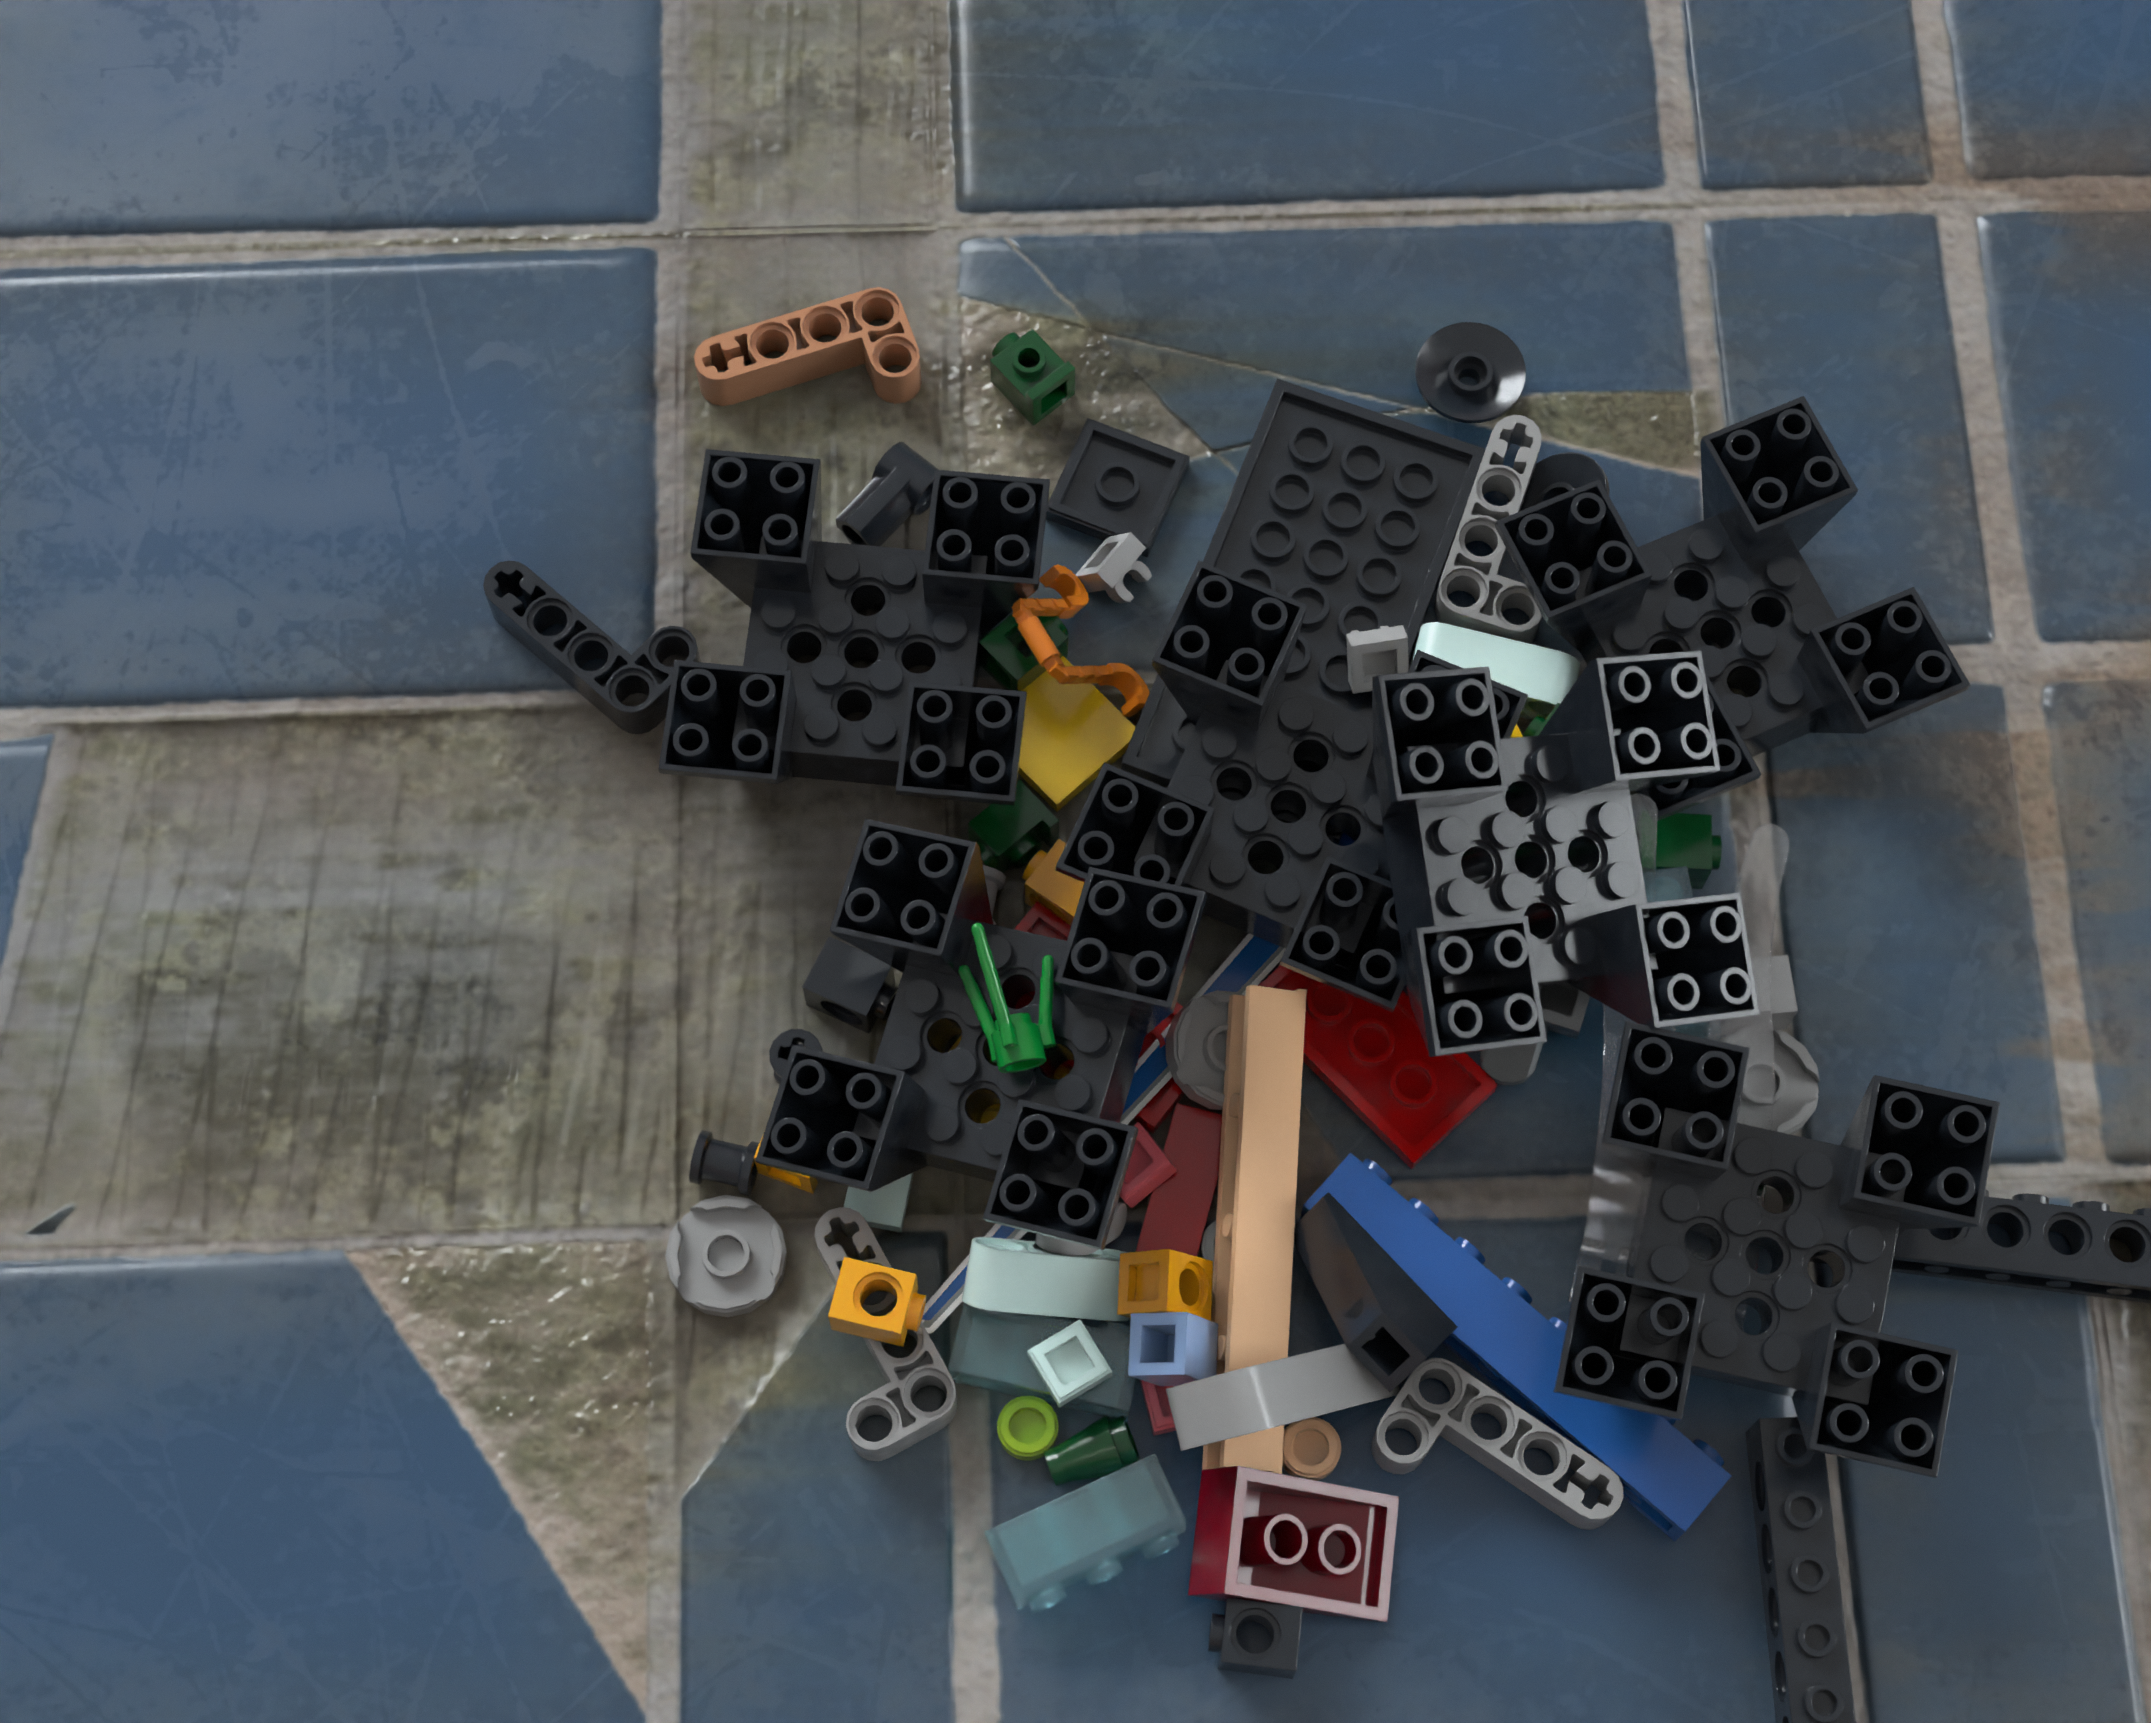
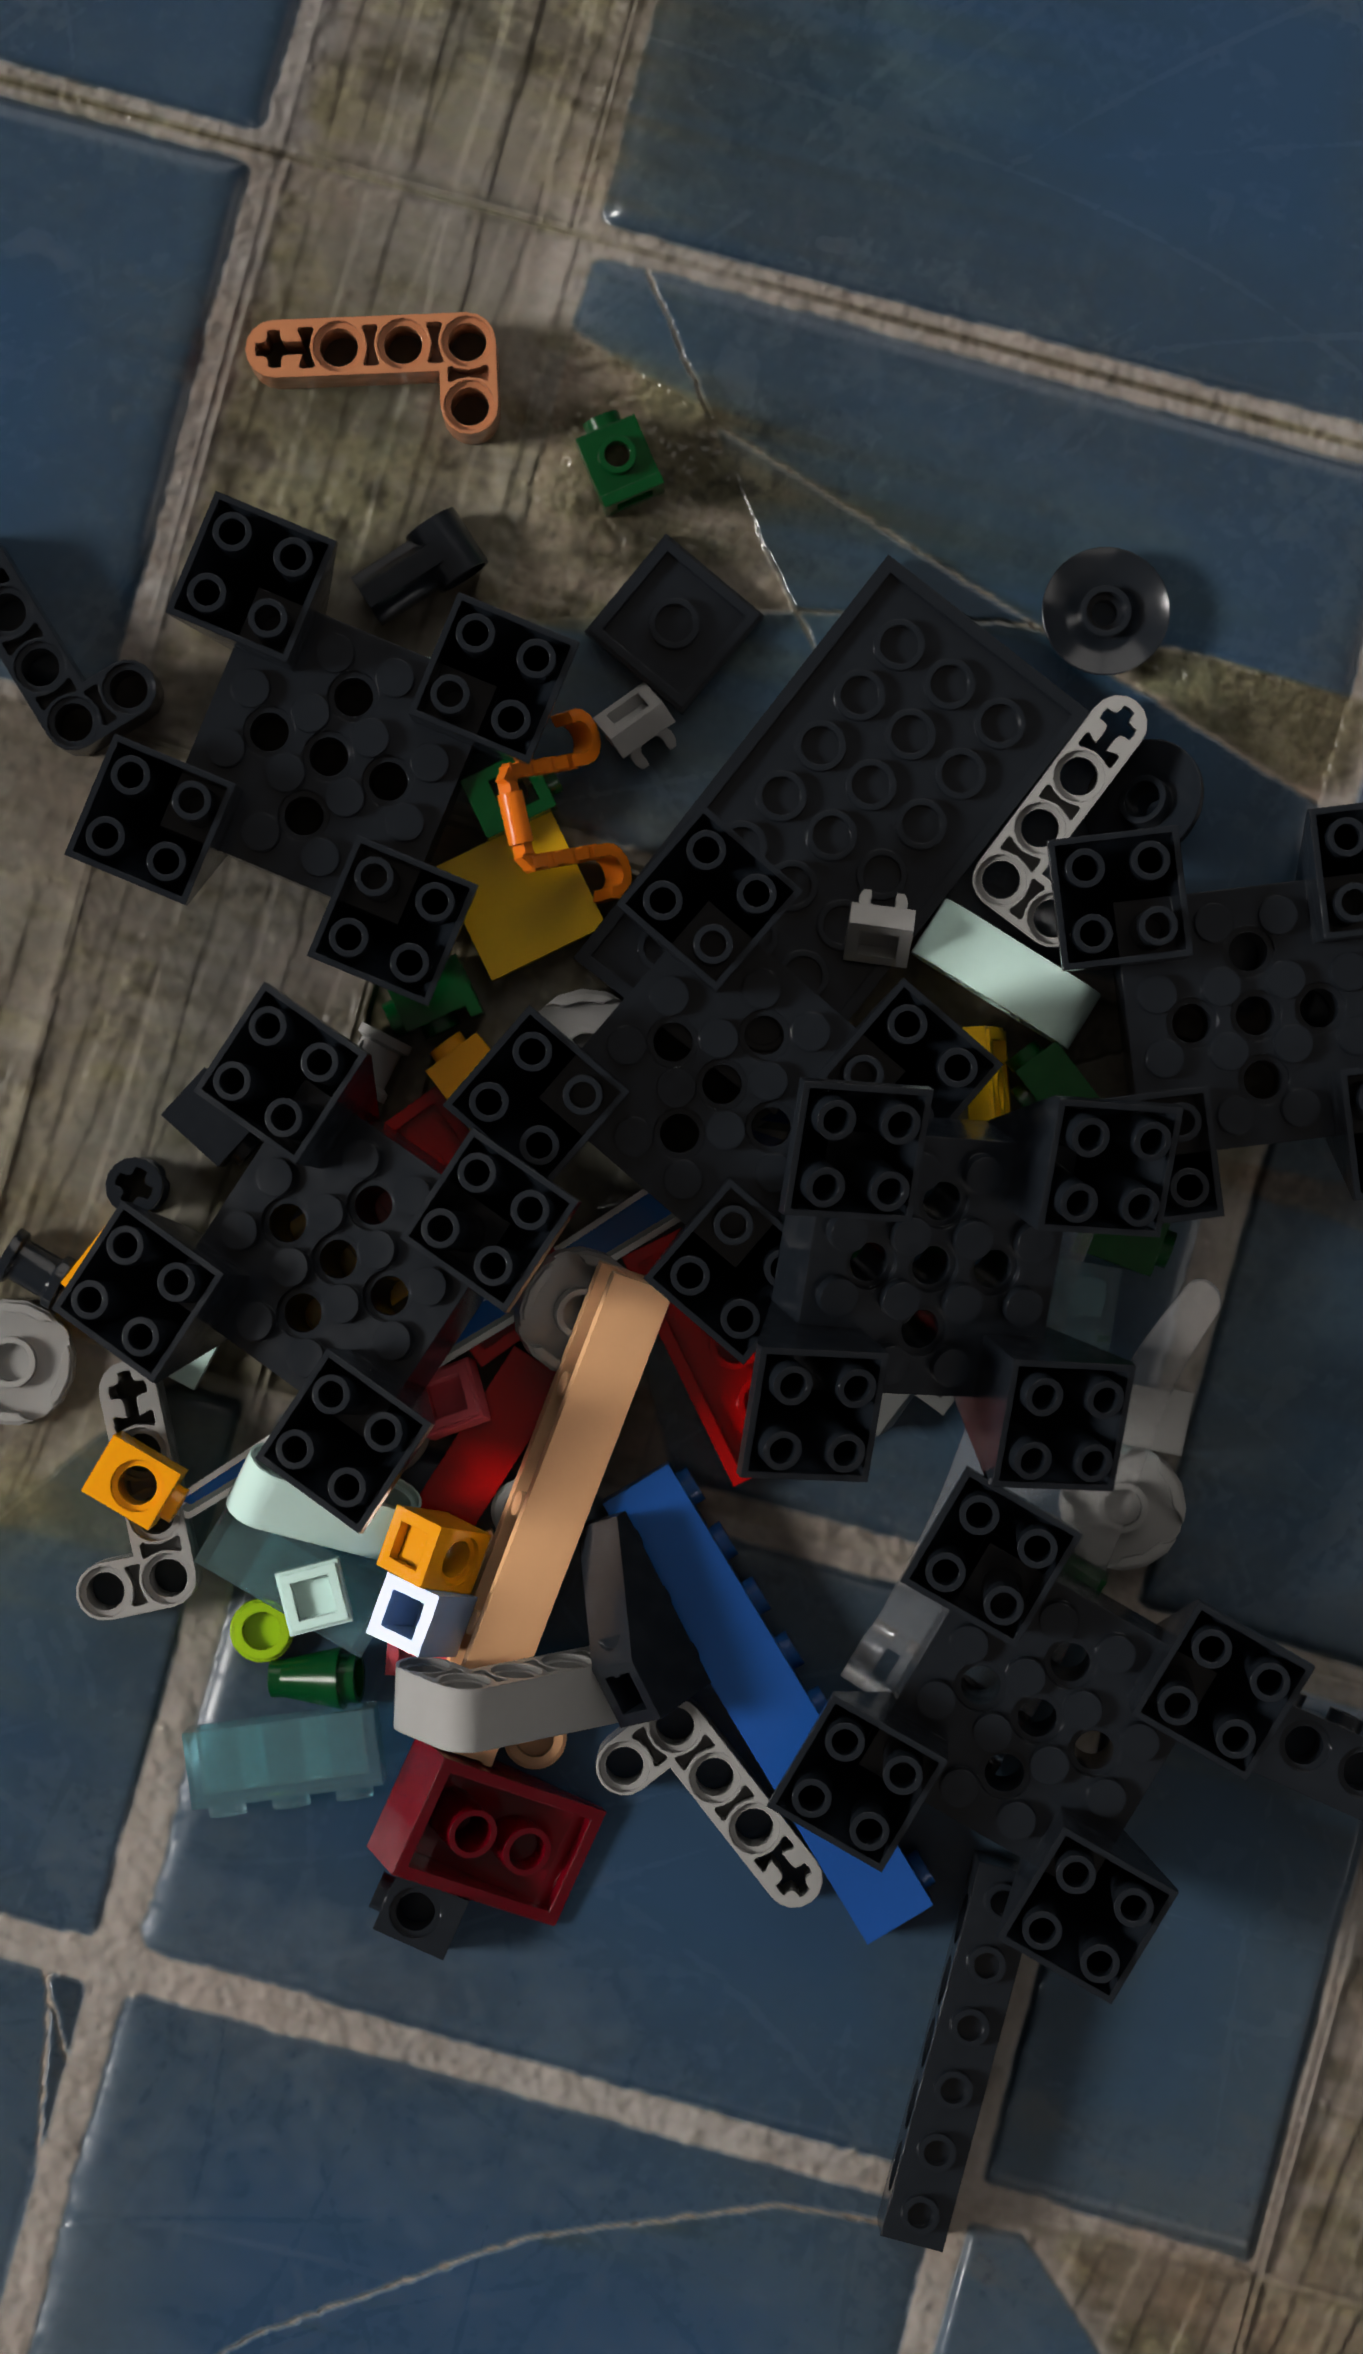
camera: 15 degrees right, 20 degrees up
(1012, 1038) = (348, 1271): green plant -> none

